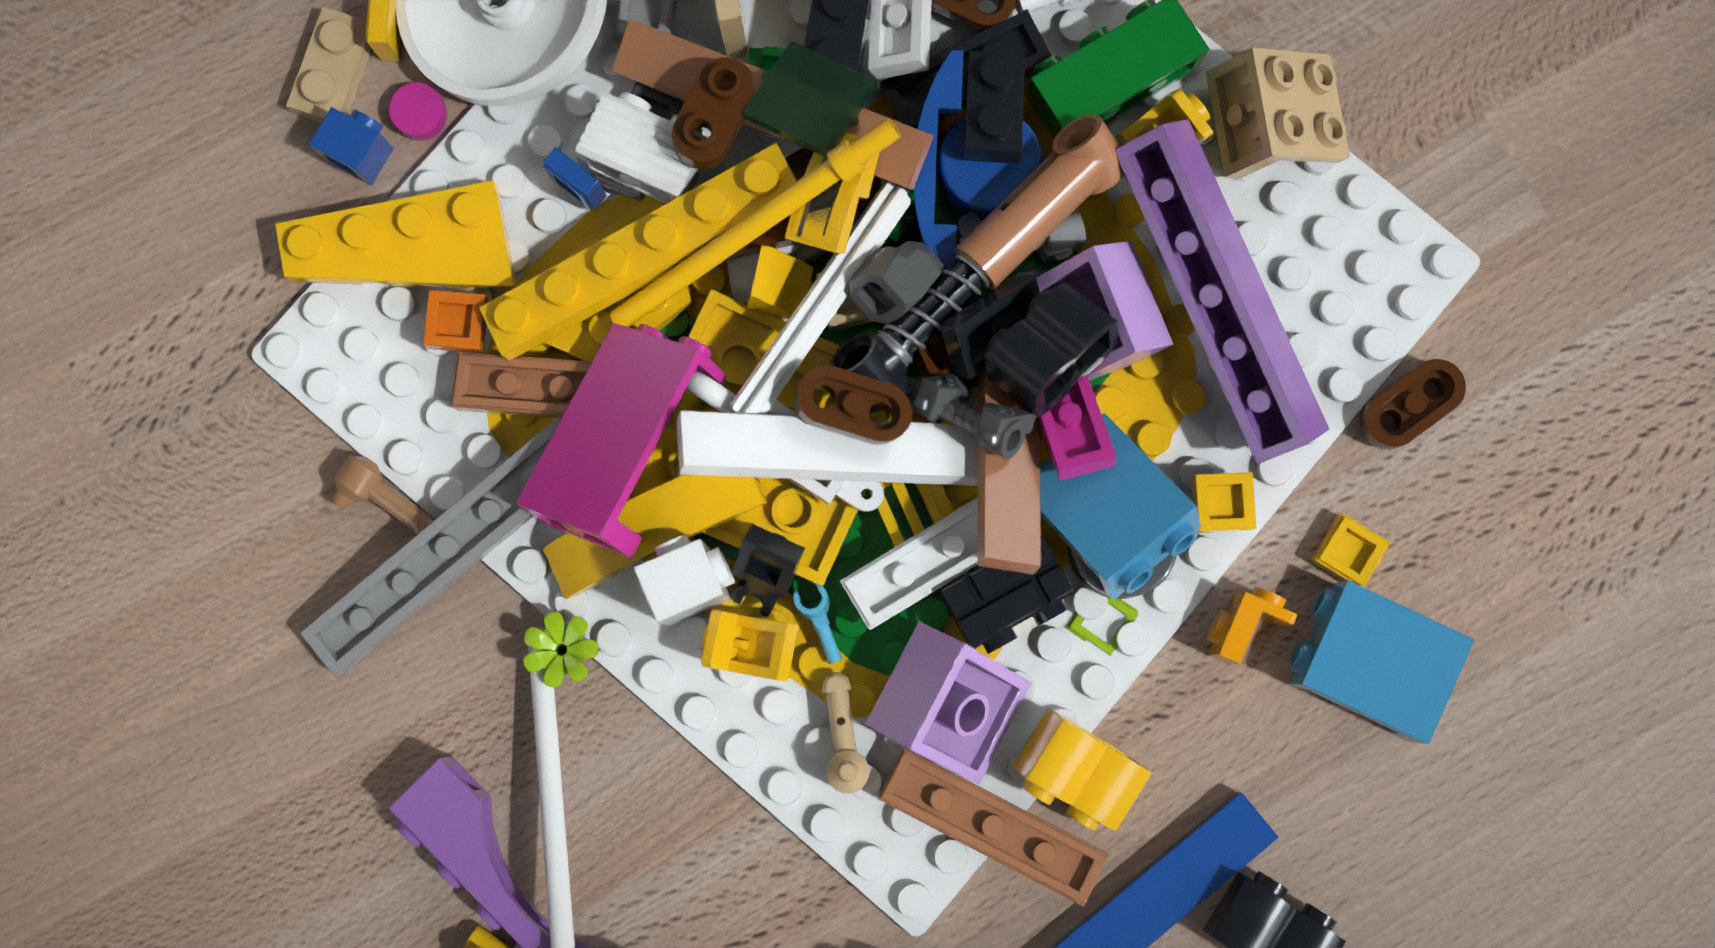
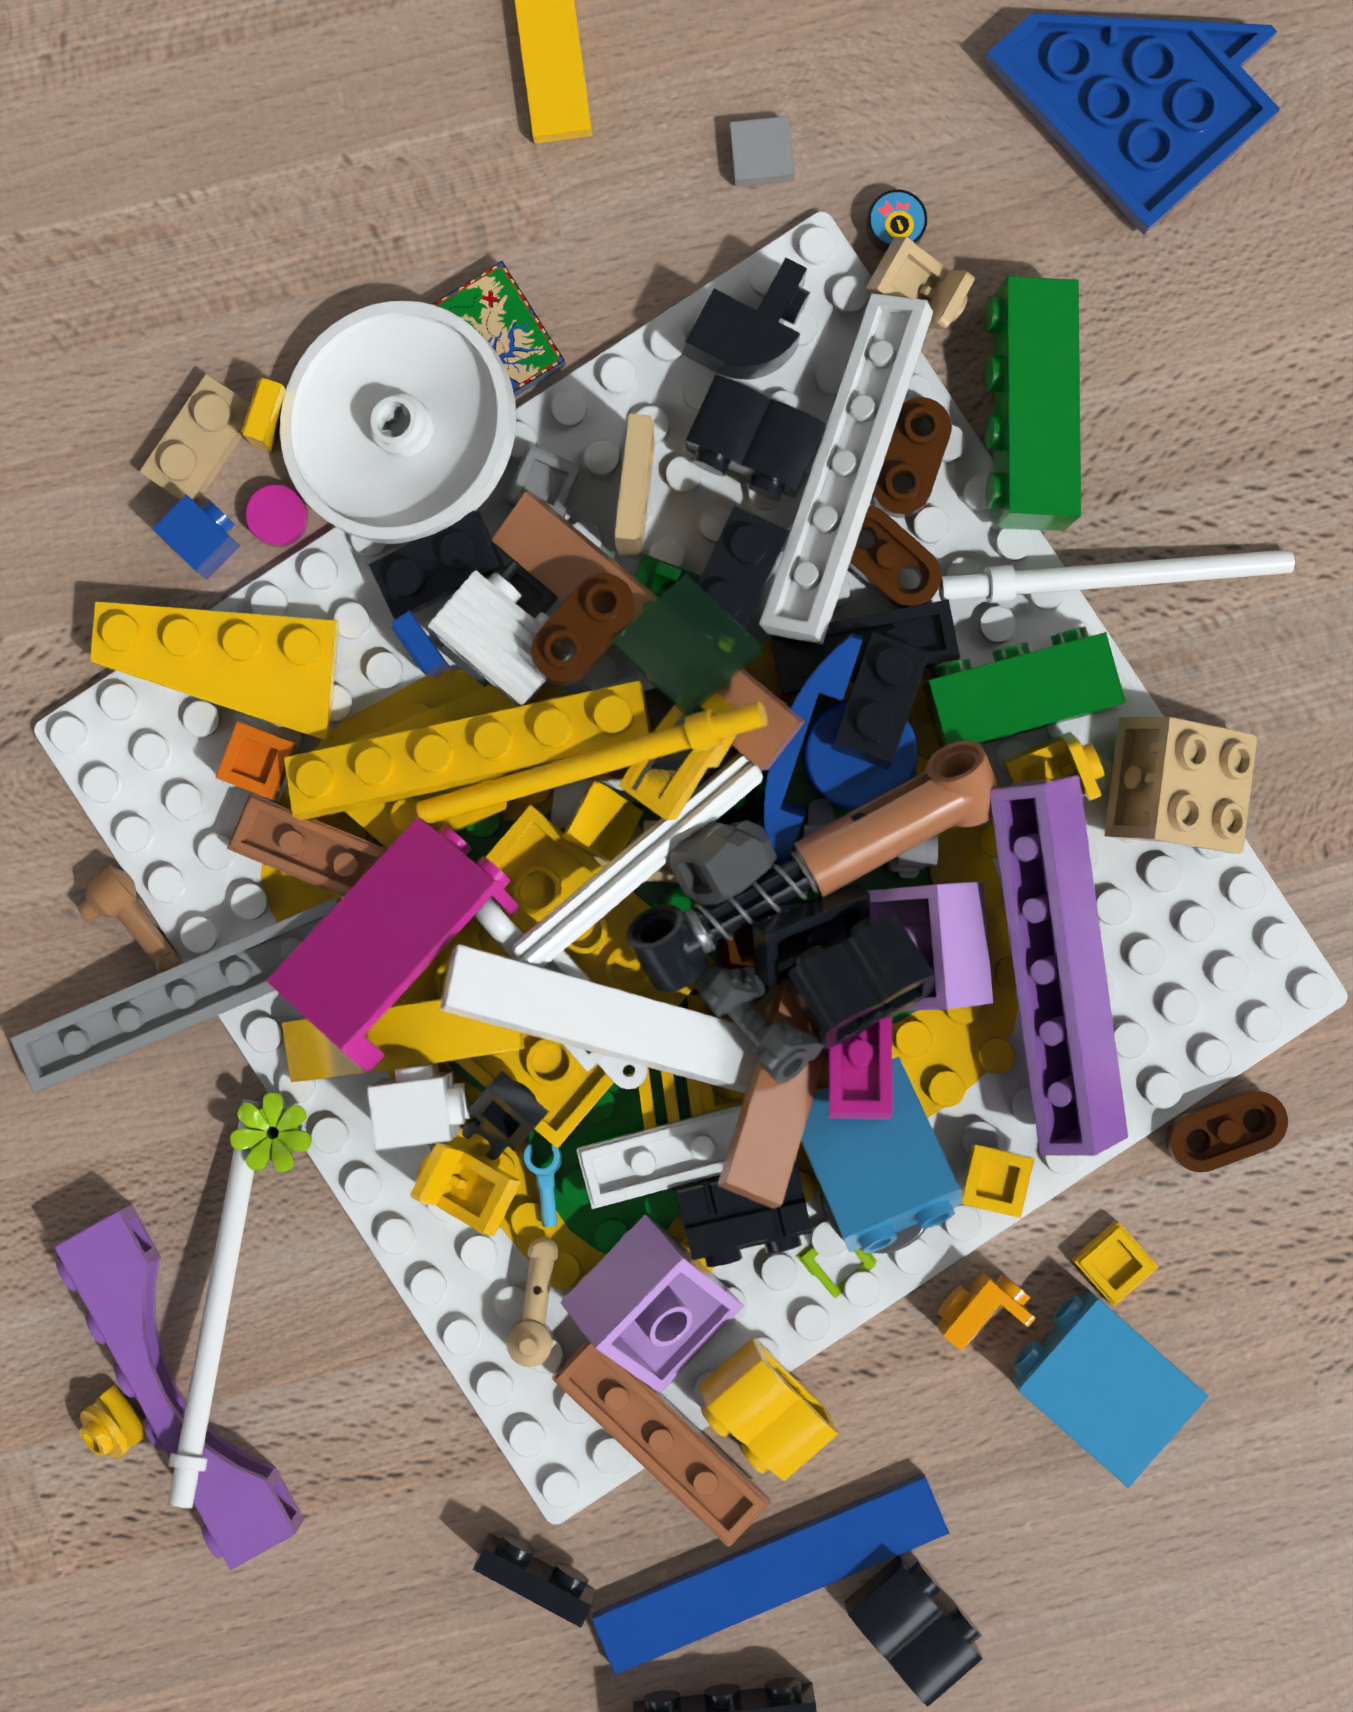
camera: 15 degrees right, 5 degrees up
(564, 108) = (436, 565): none -> black plate
(850, 405) = (636, 983): reddish brown plate -> none

